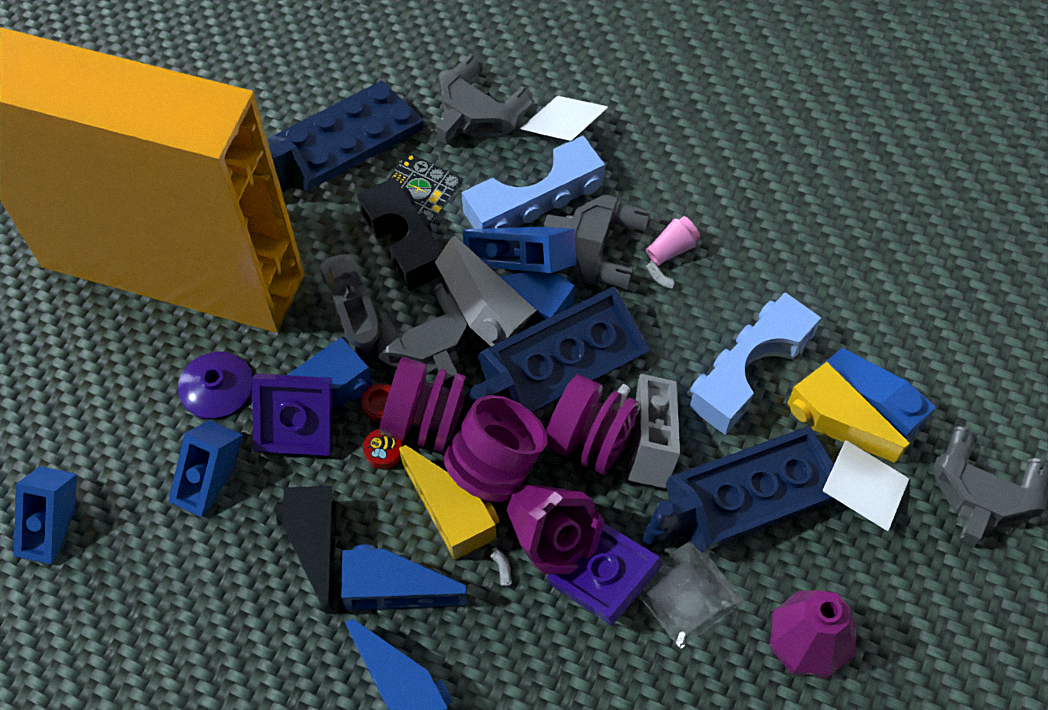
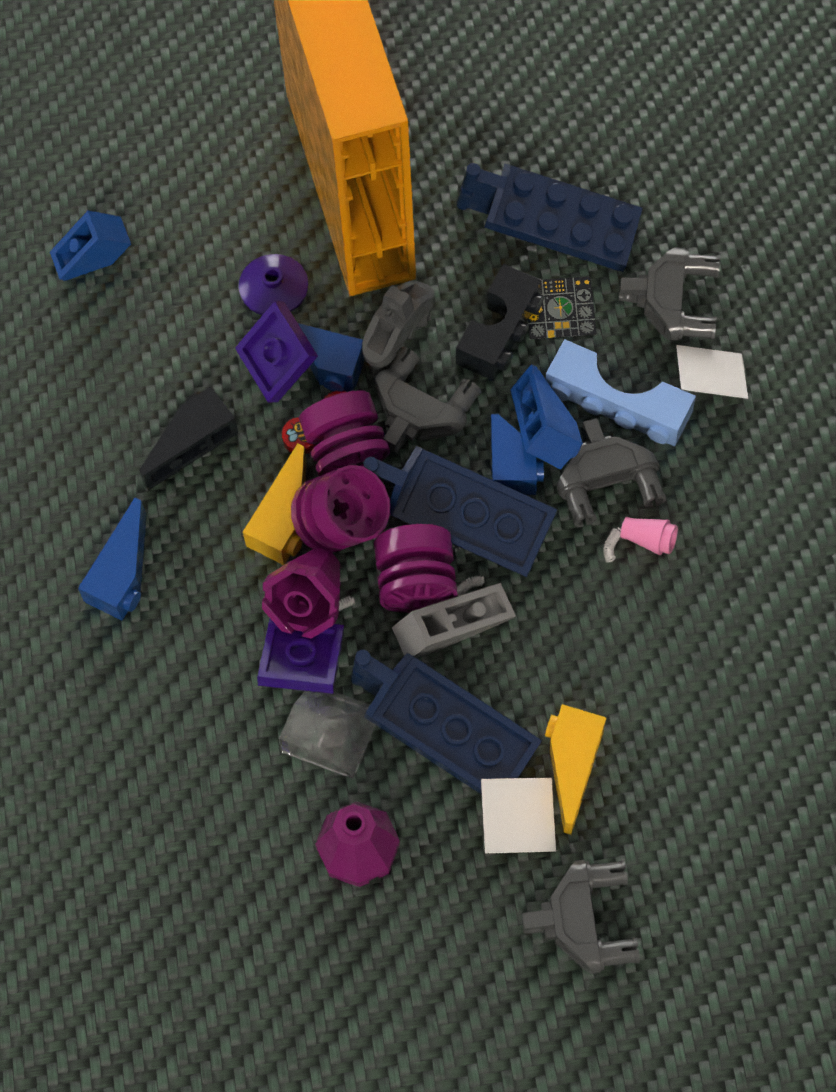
camera: 60 degrees right, 5 degrees up
(204, 466) = (197, 322): blue slope -> none
(387, 581) = (189, 502): blue slope -> none
(483, 296) = (471, 425): light grey slope -> none
(502, 566) = (265, 574): white leg -> none
(781, 332) = (528, 655): light blue arch -> none
(889, 394) = (612, 780): blue slope -> none

